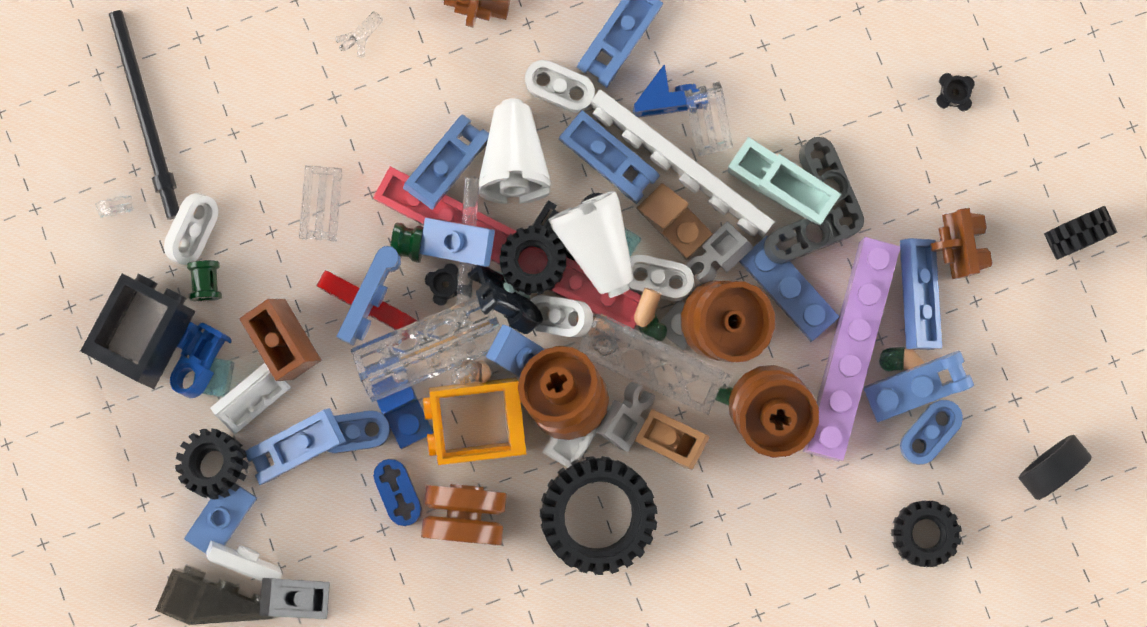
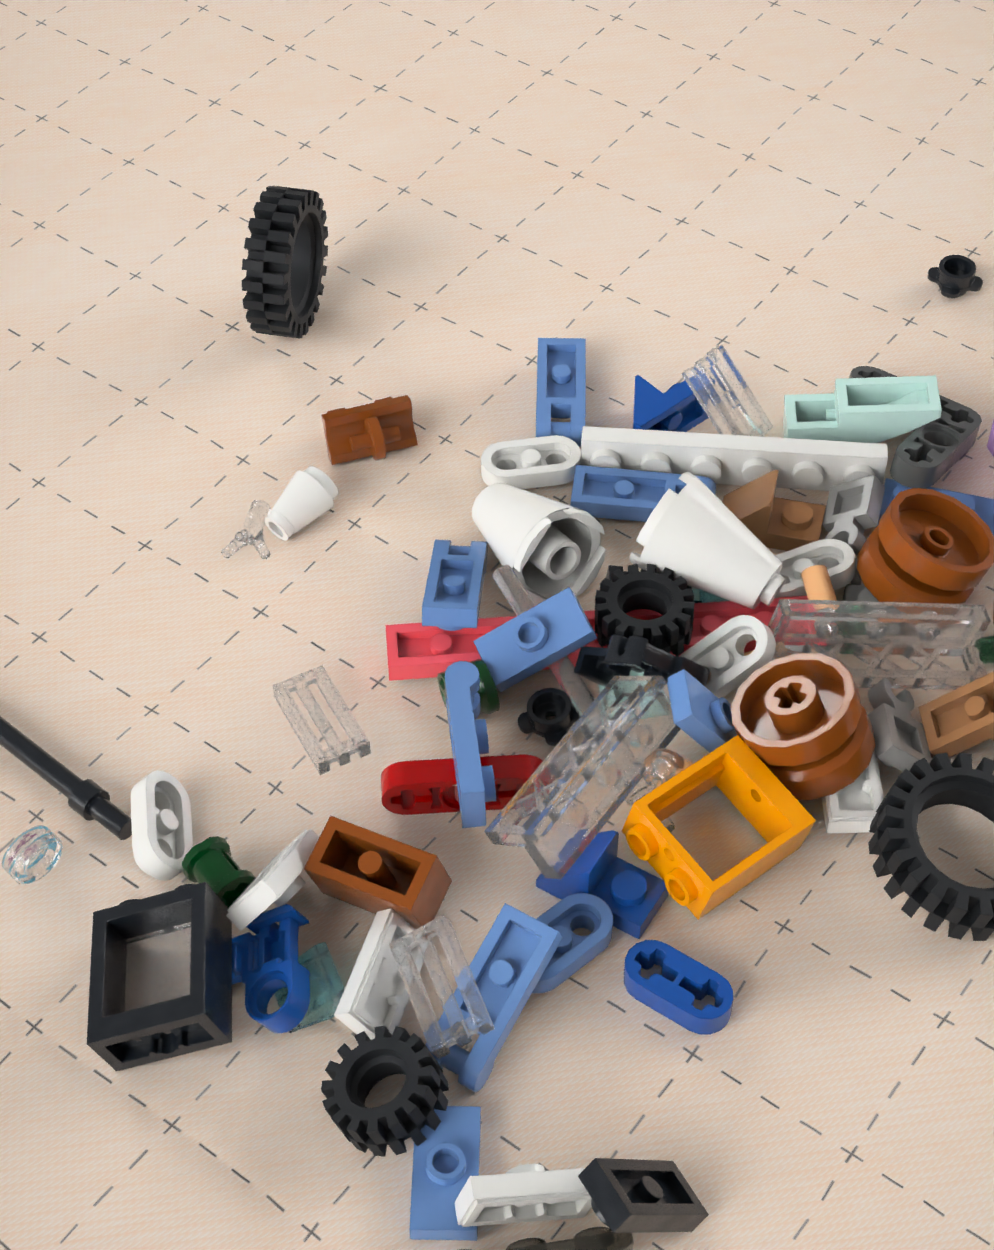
camera: 30 degrees left, 35 degrees down
(225, 310) = (276, 882): none -> white plate
(274, 430) = (460, 1029): none -> clear tile
(402, 32) = (302, 501): none -> white cone
(464, 514) = (797, 934): dark orange wheel -> none

